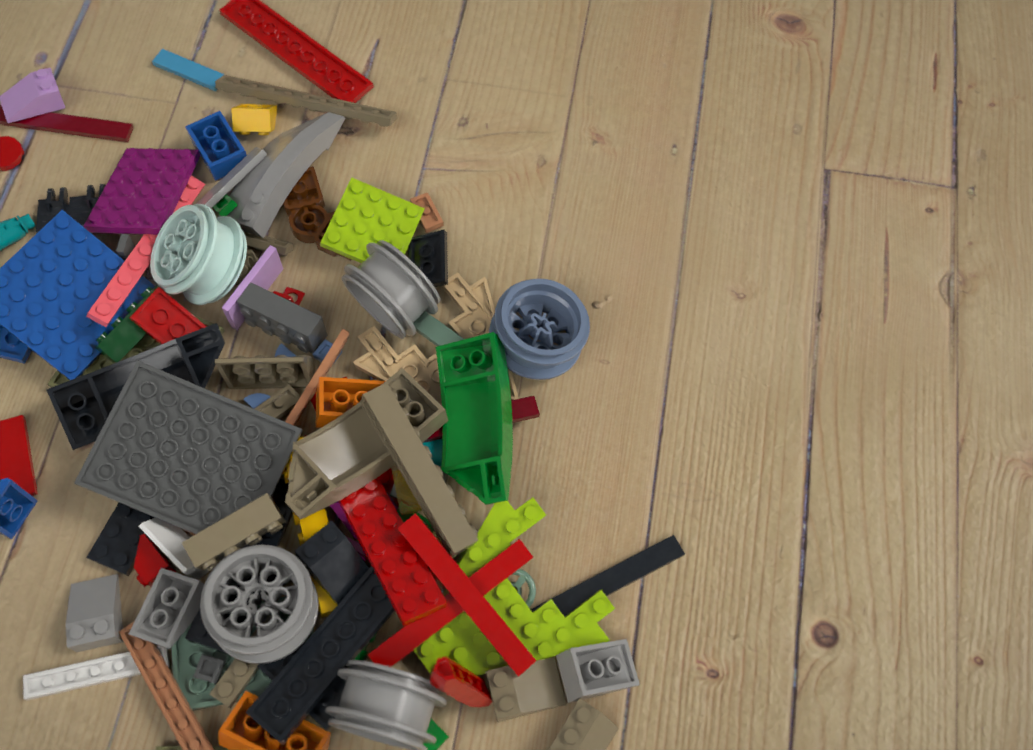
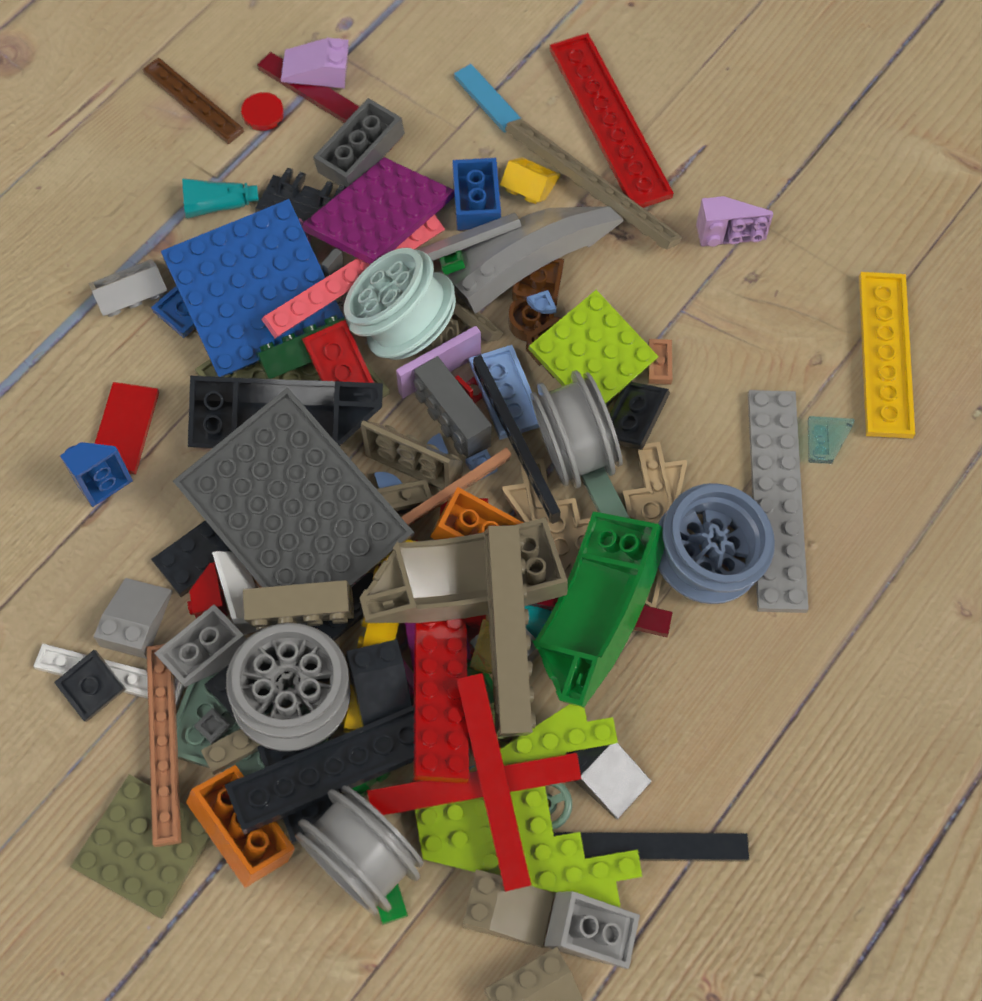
camera: 30 degrees right, 0 degrees up
(84, 689) = (90, 685): none -> black tile
(100, 145) = (359, 143): none -> dark grey brick
(313, 206) = (542, 302): none -> medium blue tile
(317, 287) = (513, 387): none -> light blue plate
(346, 319) = (516, 440): none -> black tile
(427, 85) = (731, 221): none -> lavender slope
(460, 683) = (442, 866): red brick -> none
(552, 545) = (611, 777): none -> slope
(561, 264) = (779, 493): none -> light grey plate
(578, 214) = (826, 437): none -> clear light blue wing
(590, 136) = (886, 355): none -> yellow plate

